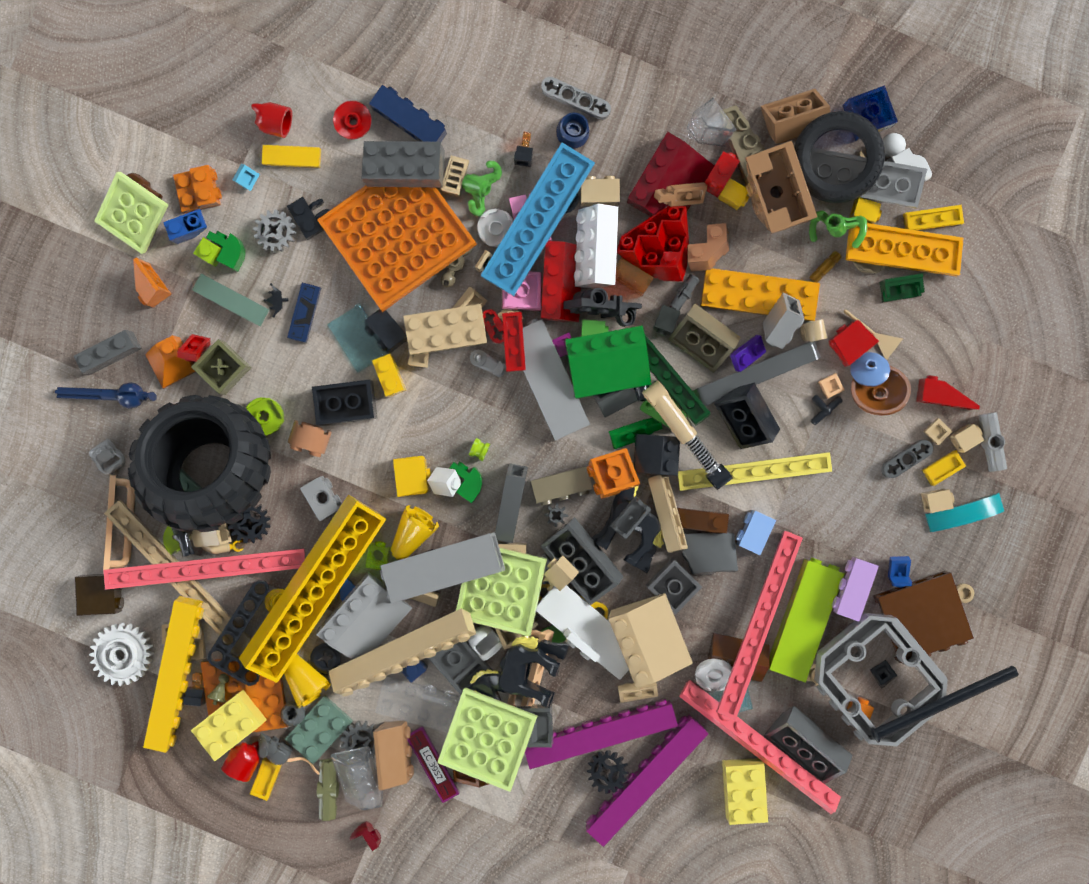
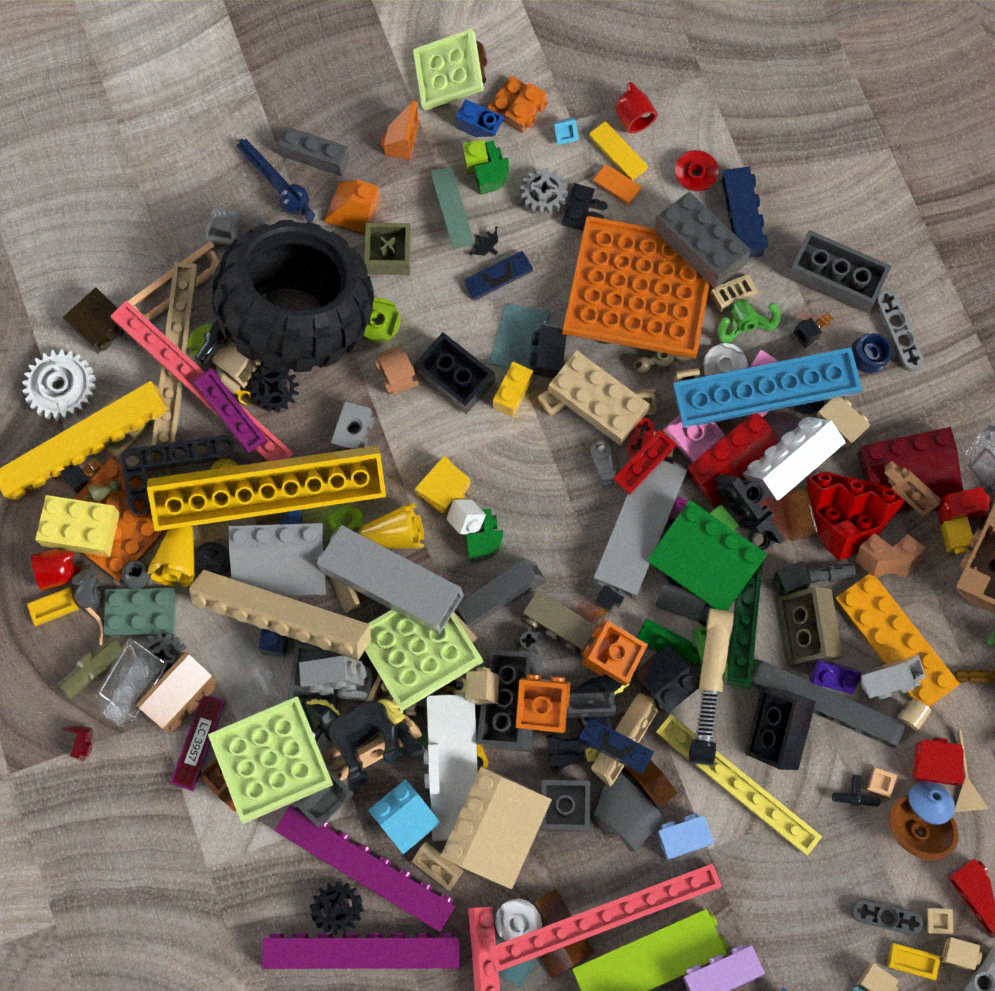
camera: 50 degrees right, 15 degrees down
(193, 348) = (382, 212): red plate -> none
(239, 566) = (229, 411): none -> magenta tile
(313, 179) = (617, 184): none -> orange tile
(471, 658) = (332, 674): none -> light grey brick
(479, 449) = (522, 523): lime wheel -> none
(504, 97) = (839, 271): none -> dark grey brick
(575, 445) = (606, 601): none -> black piece
(592, 686) = (404, 816): none -> medium azure slope
(606, 548) = (543, 703): none -> orange plate
(669, 525) = (616, 745): none -> dark blue tile

